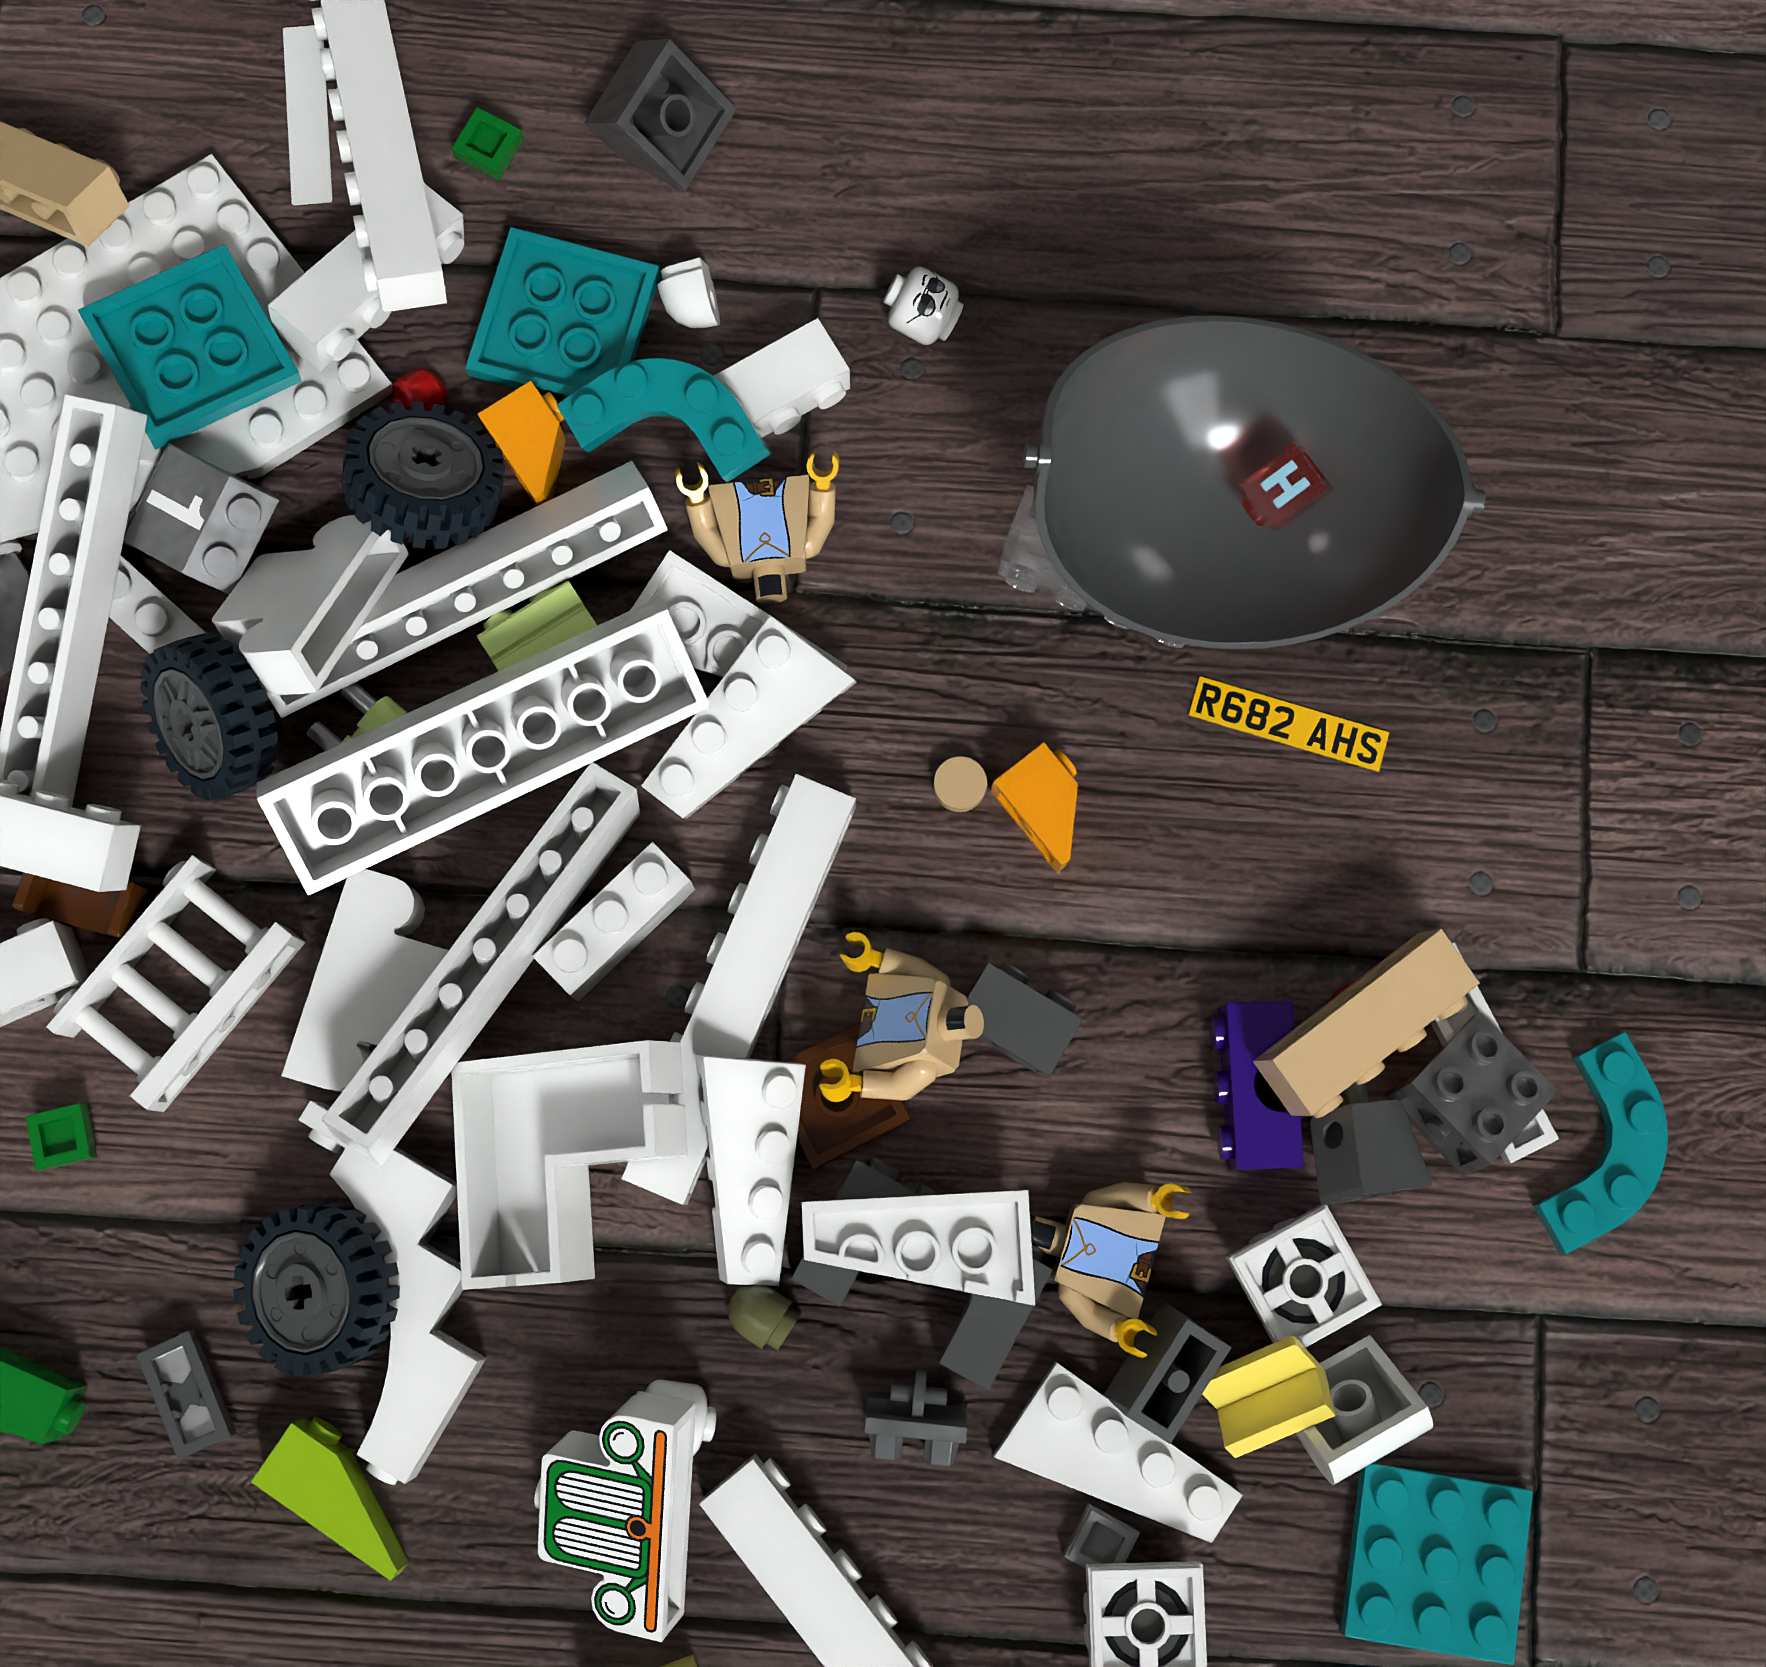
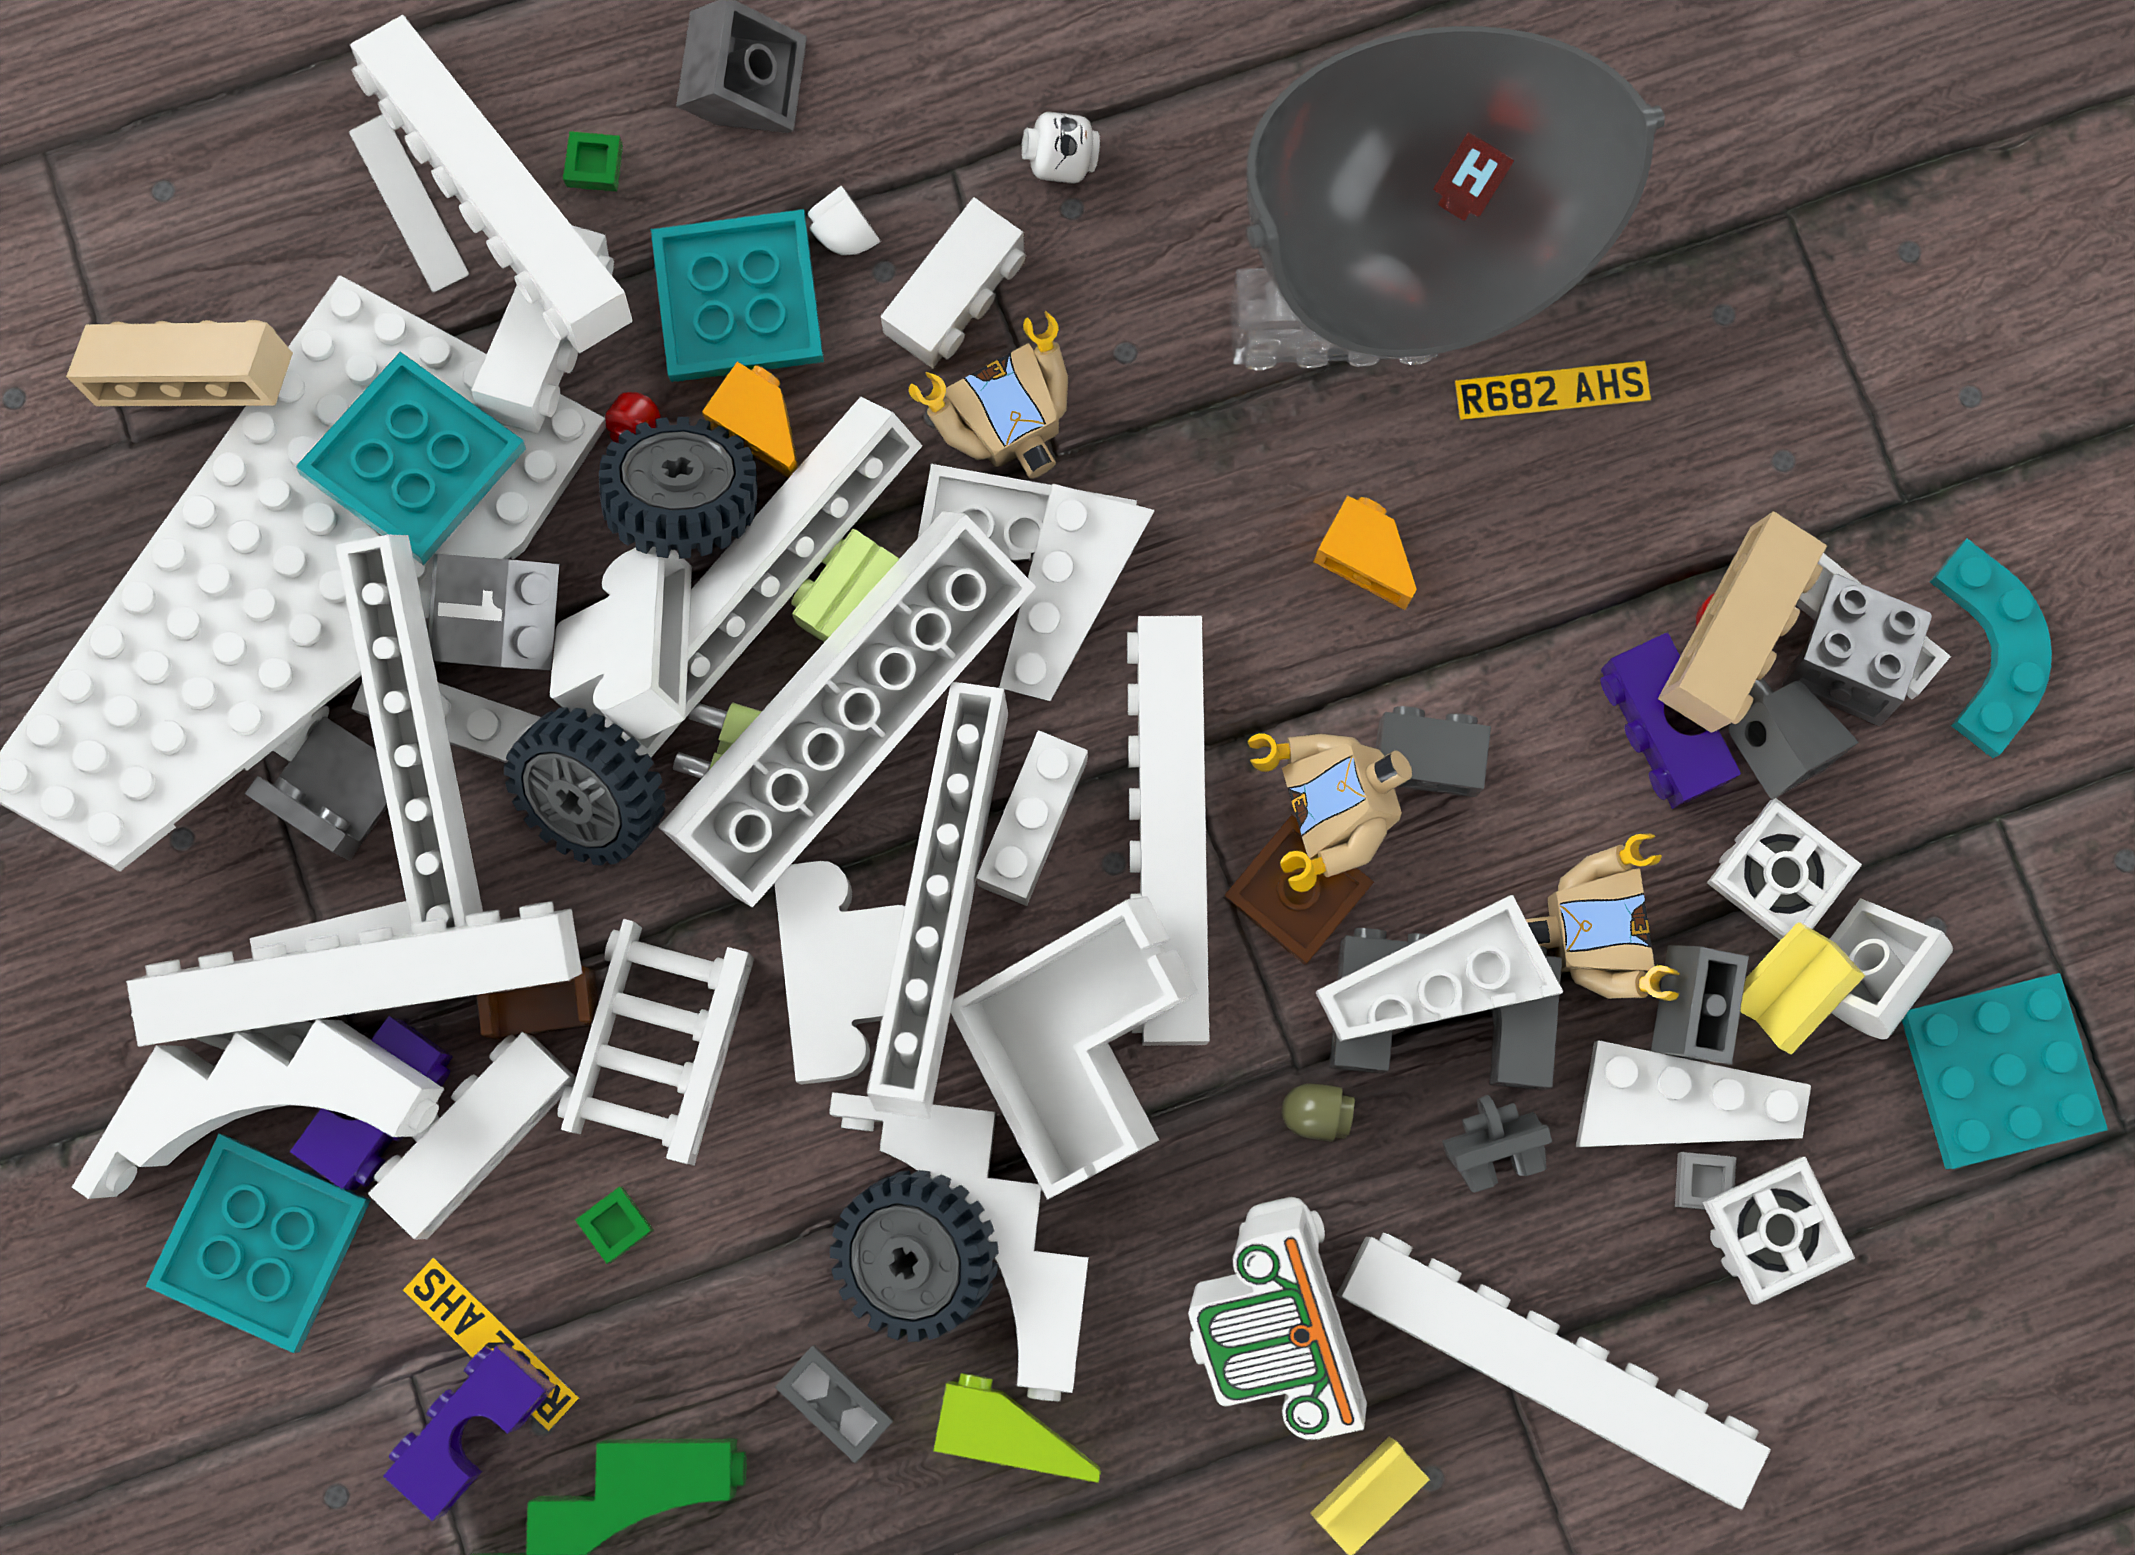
camera: 20 degrees left, 0 degrees up
(667, 390) = (872, 317): teal plate -> none
(752, 1145) = (1244, 954): white wing -> none
(960, 784) = (1284, 566): tan tile -> none

